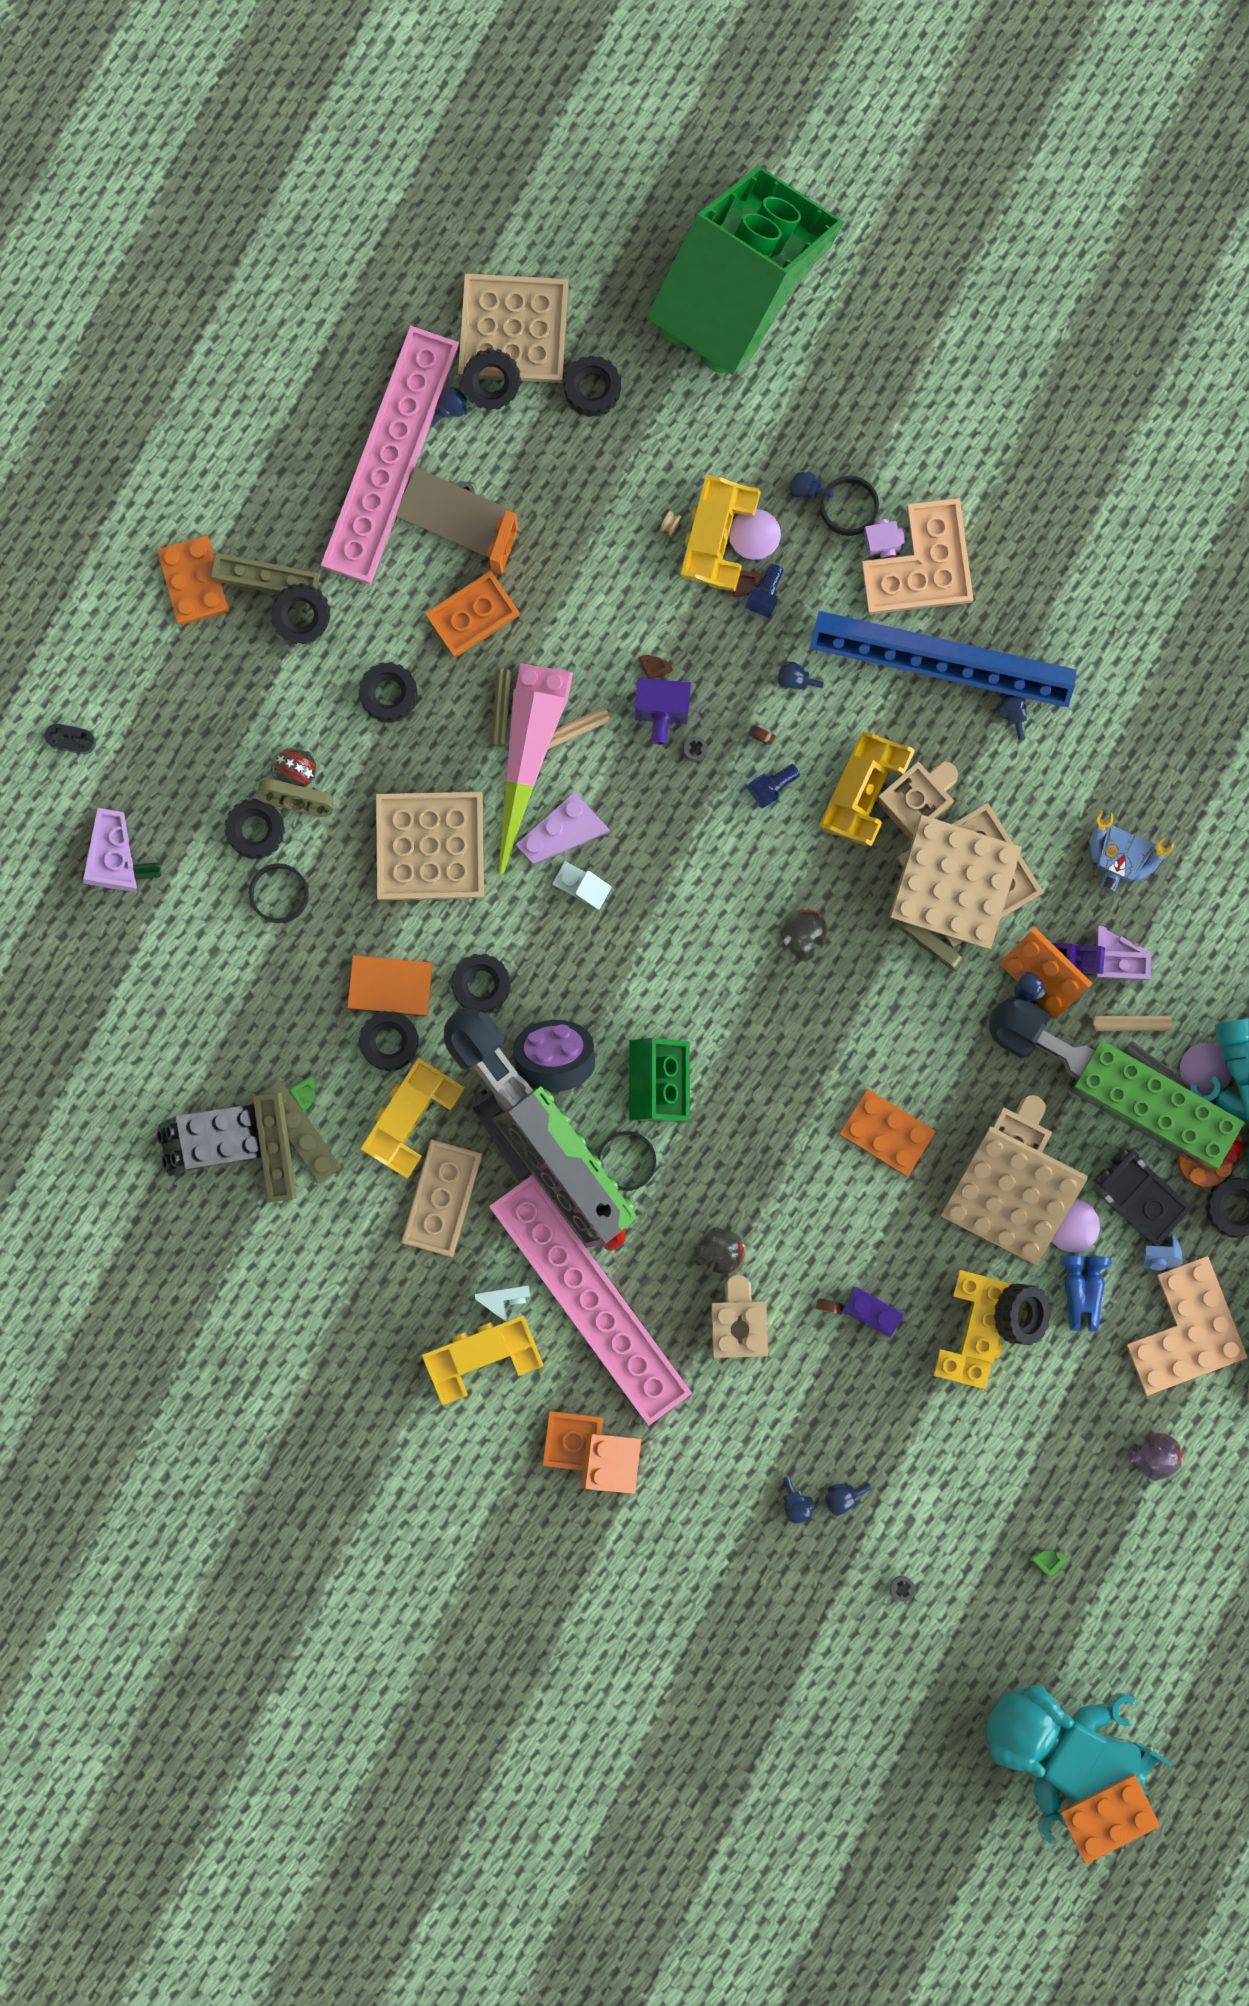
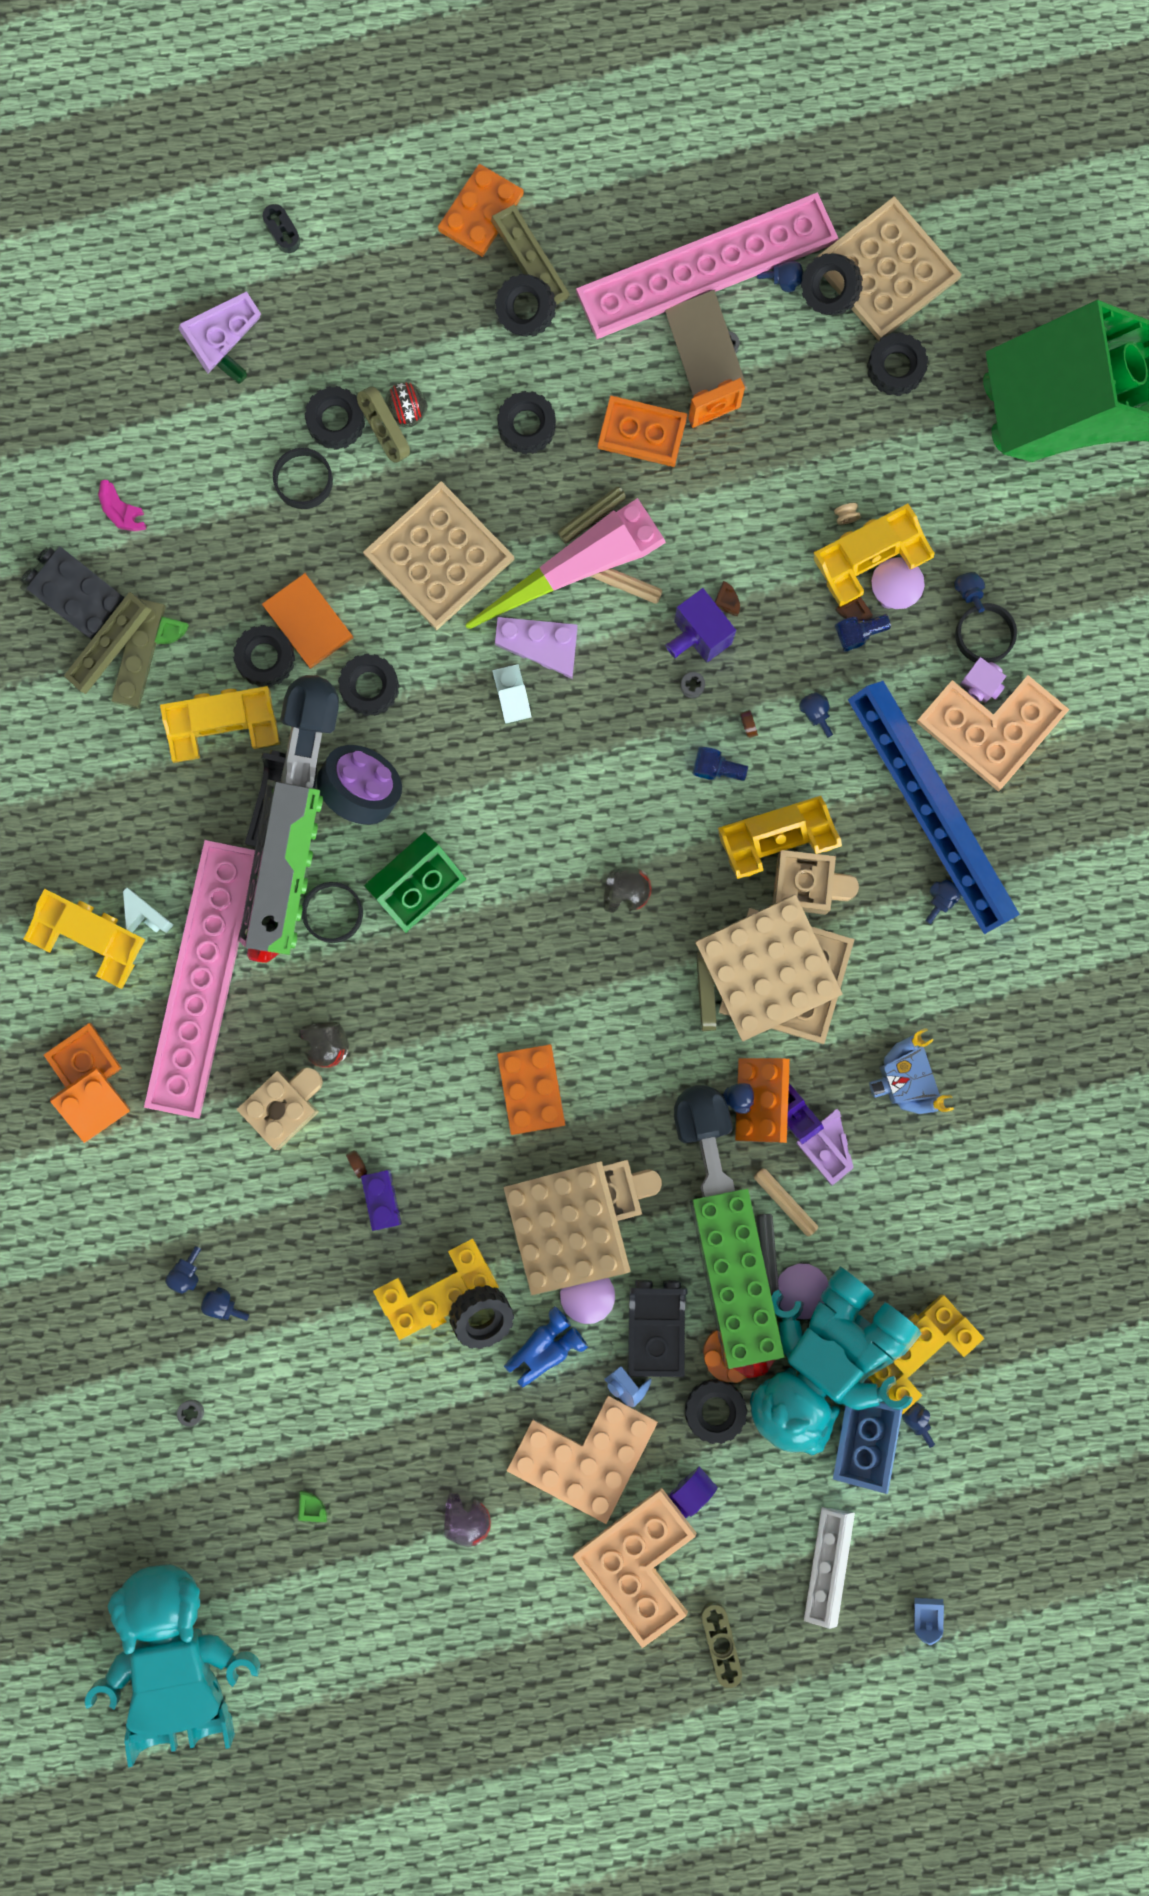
camera: 45 degrees right, 0 degrees up
(176, 1052) = (118, 511): none -> dark pink piece
(441, 1198) = (181, 801): tan tile -> none
(1109, 1818) = (140, 1736): orange plate -> none

